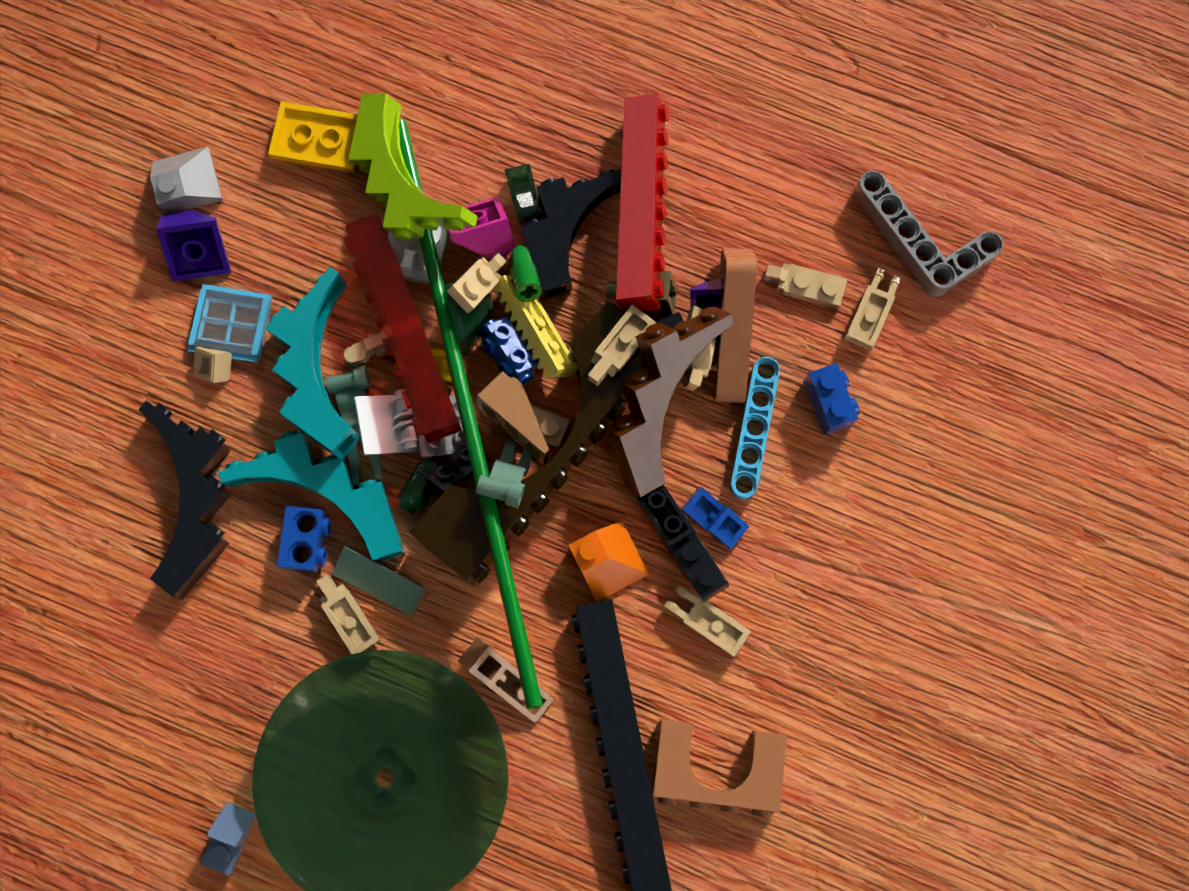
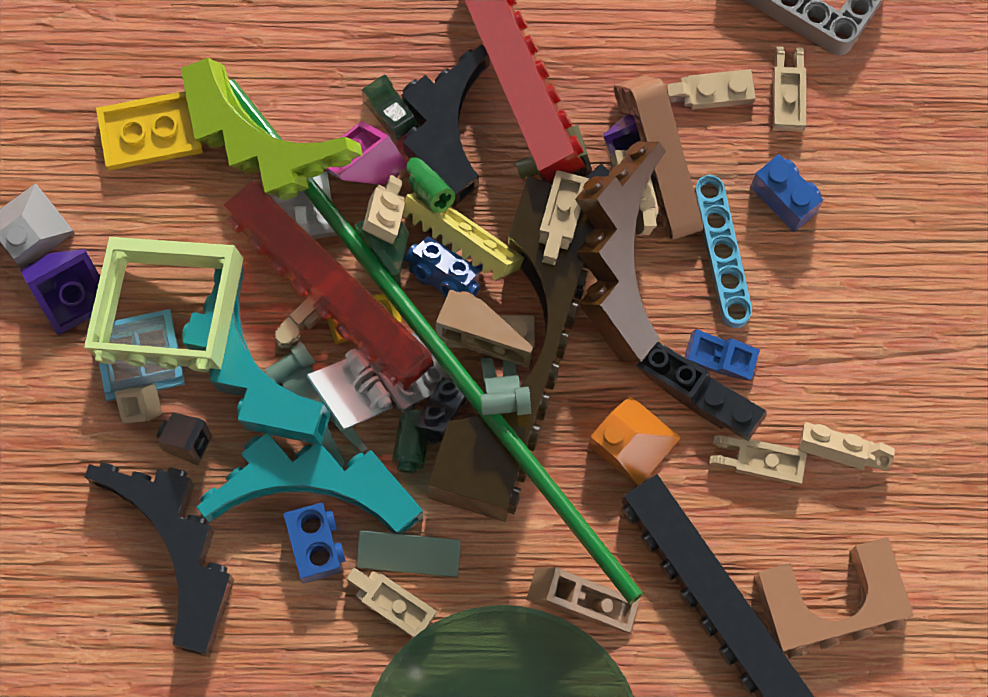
camera: 25 degrees left, 5 degrees down
(224, 261) = (172, 253): none -> yellowish green window
(234, 409) = (184, 437): none -> black slope
(785, 641) = (845, 448): none -> tan hinge

